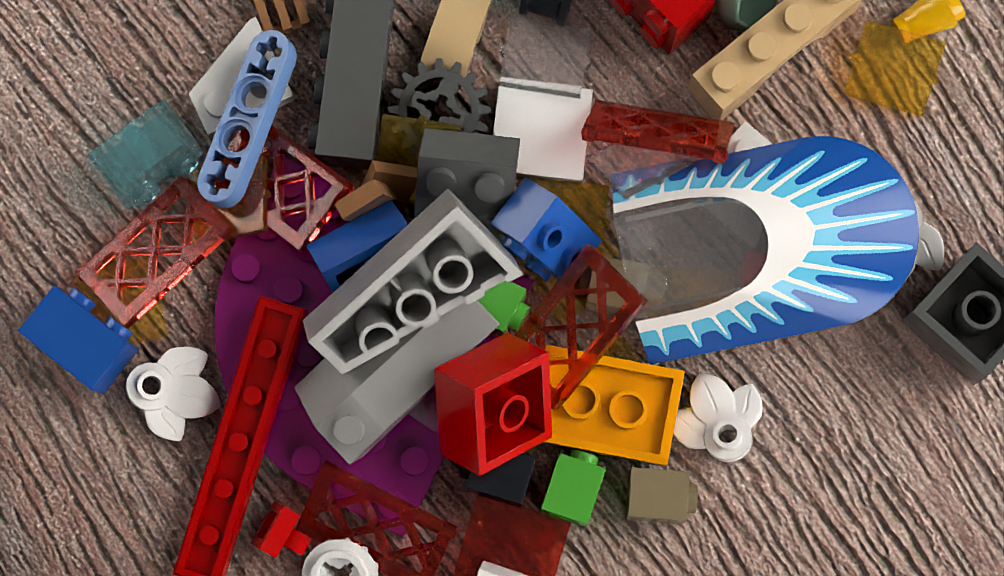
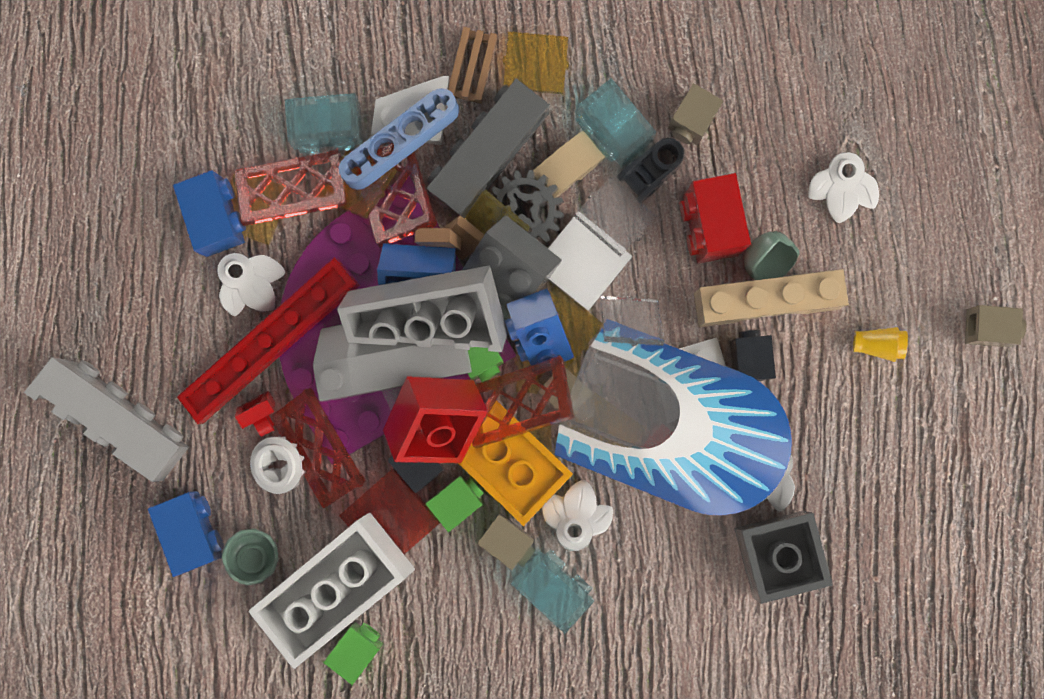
camera: 35 degrees right, 5 degrees up
(612, 123) = (668, 309): clear red window -> none
(746, 516) = (553, 590): none -> clear light blue brick
(798, 113) = (753, 355): none -> black brick
(894, 67) = (836, 363): clear yellow piece -> none

